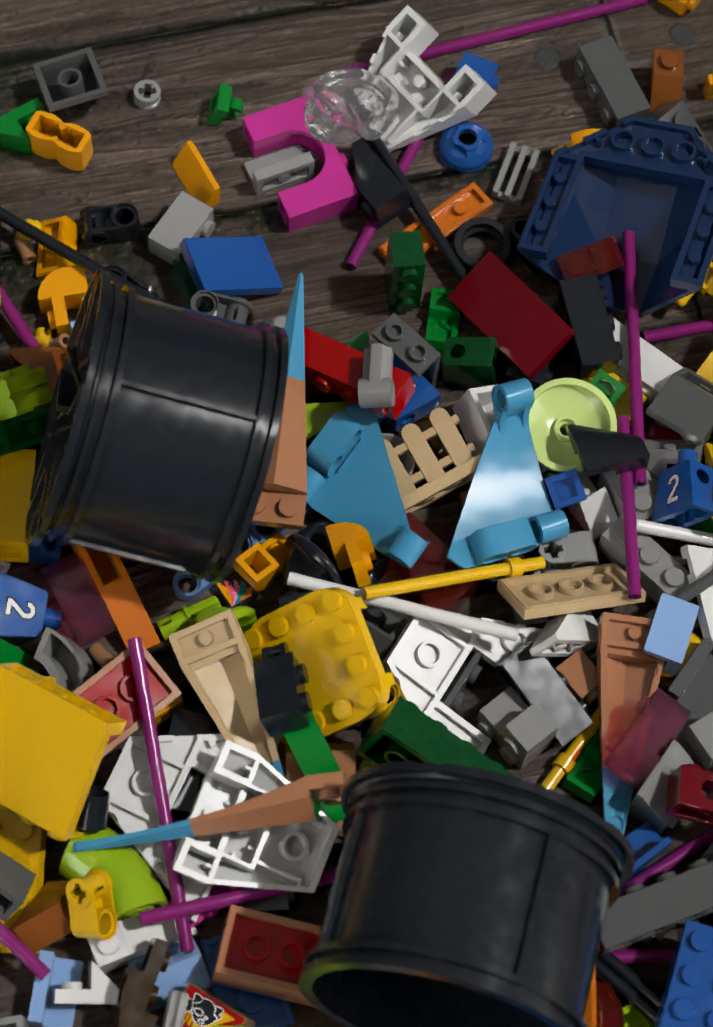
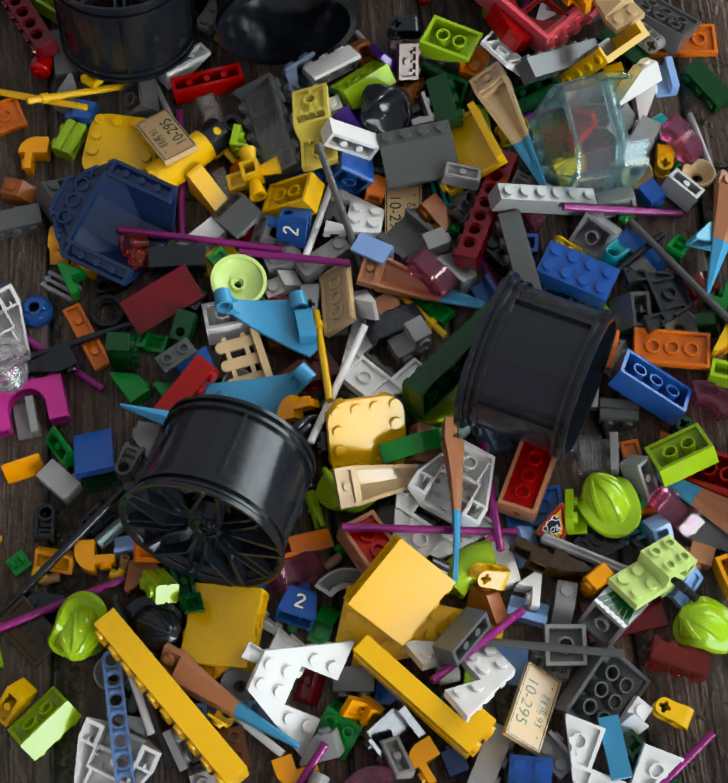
camera: 75 degrees left, 0 degrees up
(44, 201) = (19, 563): none -> green tile
(234, 216) = (60, 447): none -> green slope
(281, 691) = (381, 451): black brick -> none
(354, 305) = (132, 387): none -> green slope
(377, 385) = (203, 371): light grey piece -> none
(525, 177) = (71, 277): none -> green slope
(566, 489) = (277, 289): blue plate -> none
(607, 450) = (260, 261): black slope -> none

